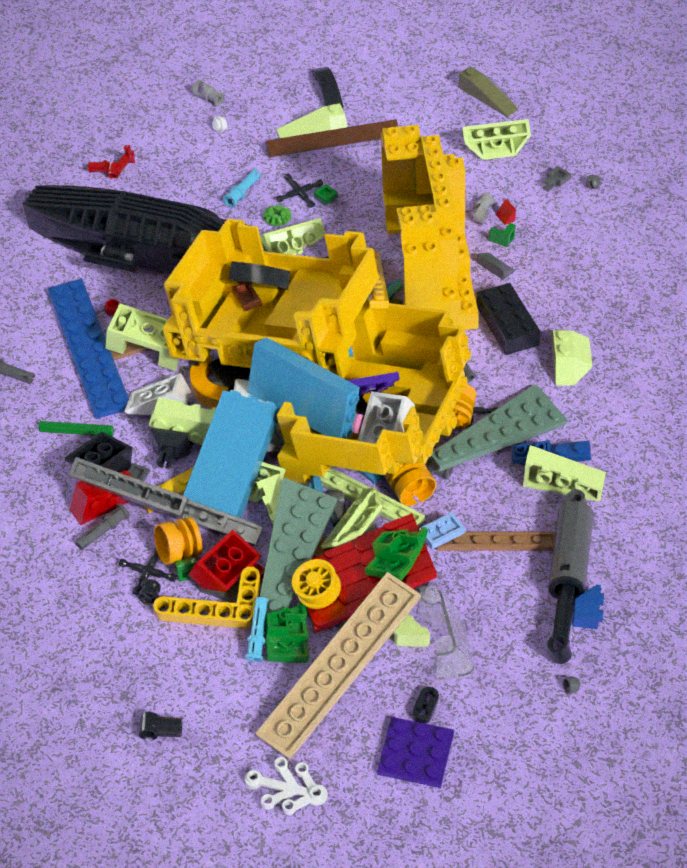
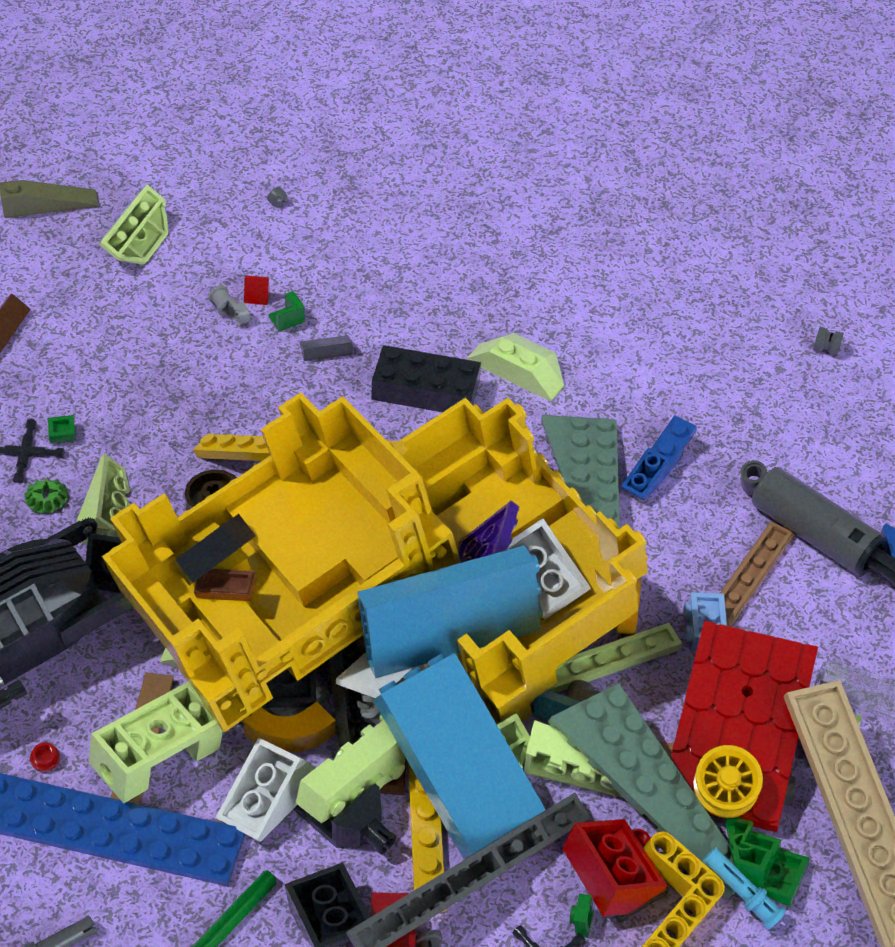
camera: 60 degrees left, 0 degrees up
(139, 472) = (370, 883): dark grey tile -> none
(177, 540) = (543, 896): light orange wheel -> none
(357, 520) = (647, 682): yellowish green wedge -> none
(396, 552) = (757, 671): green slope -> none
(428, 209) = (255, 330): yellow panel -> none
(557, 176) = (242, 219): dark grey plate -> none
(561, 475) = (701, 469): yellowish green wedge -> none

